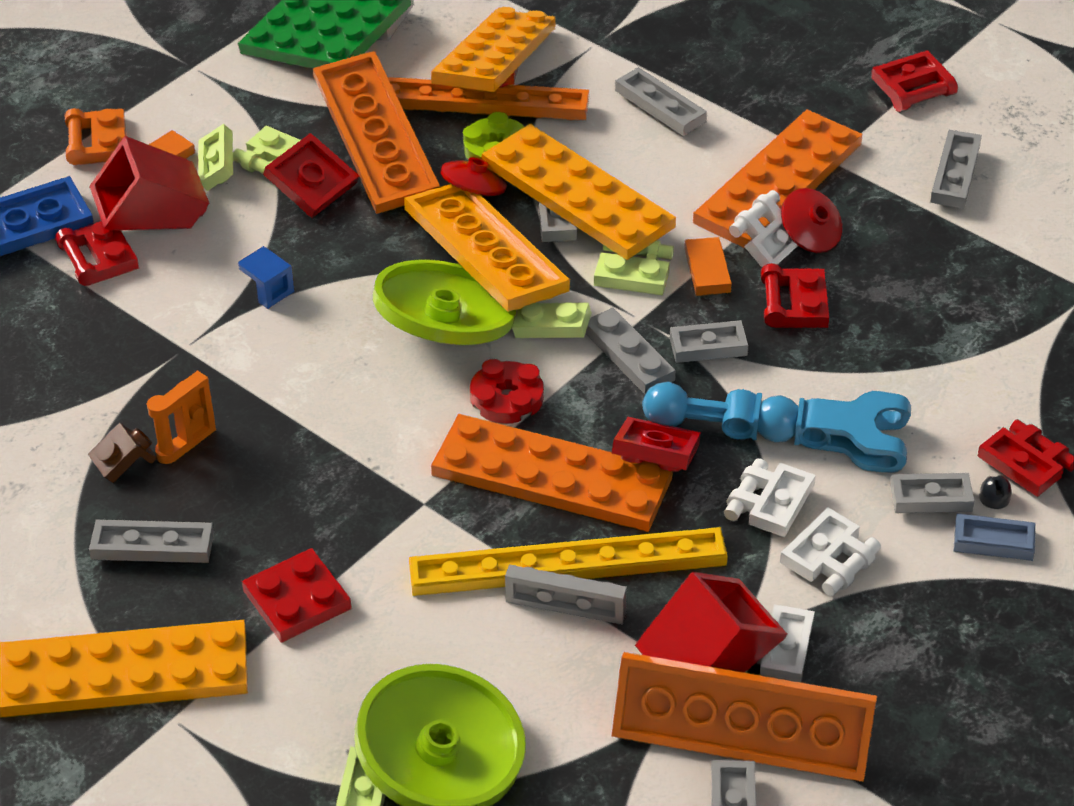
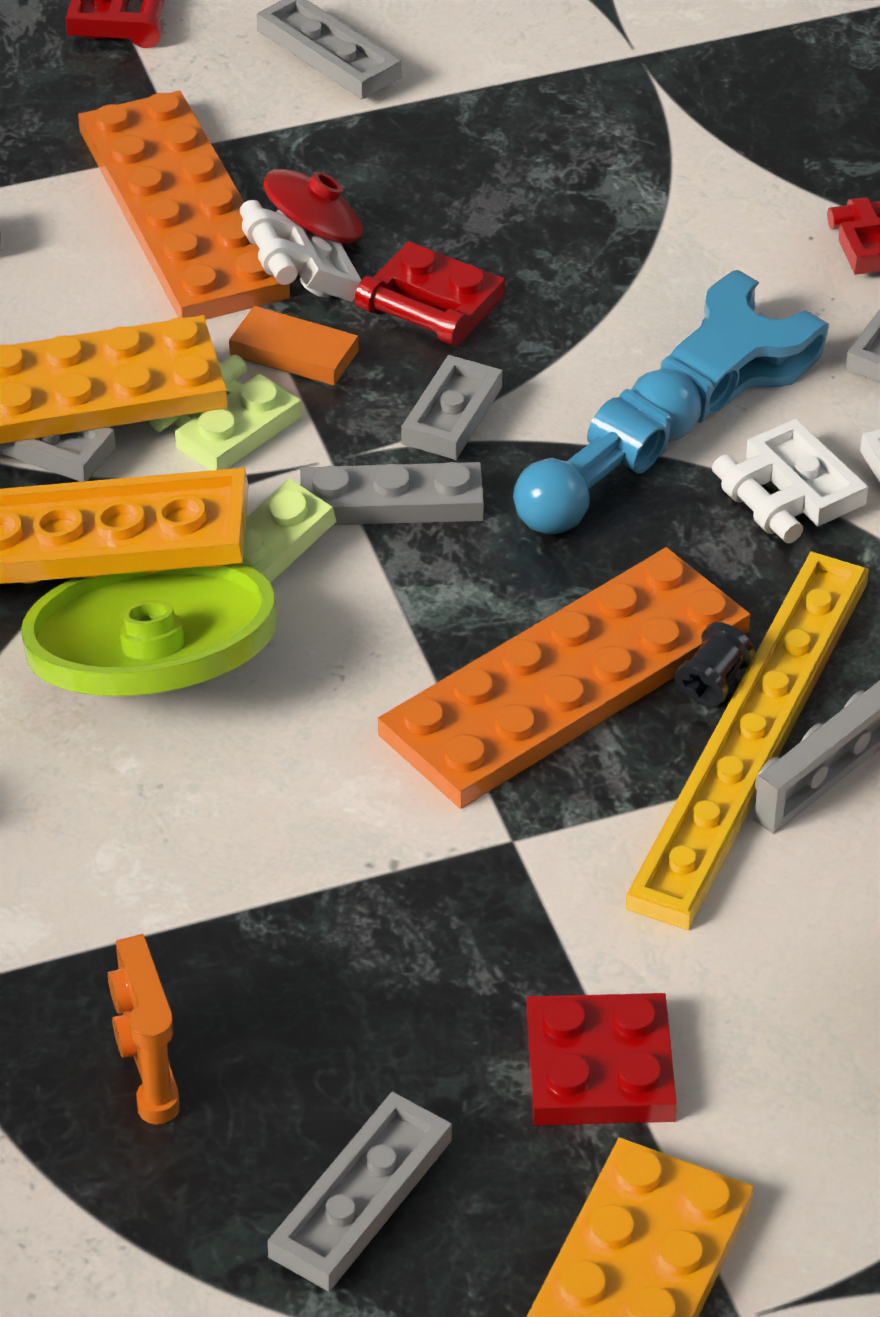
camera: 60 degrees left, 0 degrees up
(120, 450) = (125, 1155): reddish brown bracket -> none
(501, 375) = (366, 623): red plate -> none
(594, 521) = (715, 664): none -> black bush
(656, 443) = (625, 535): red plate -> none

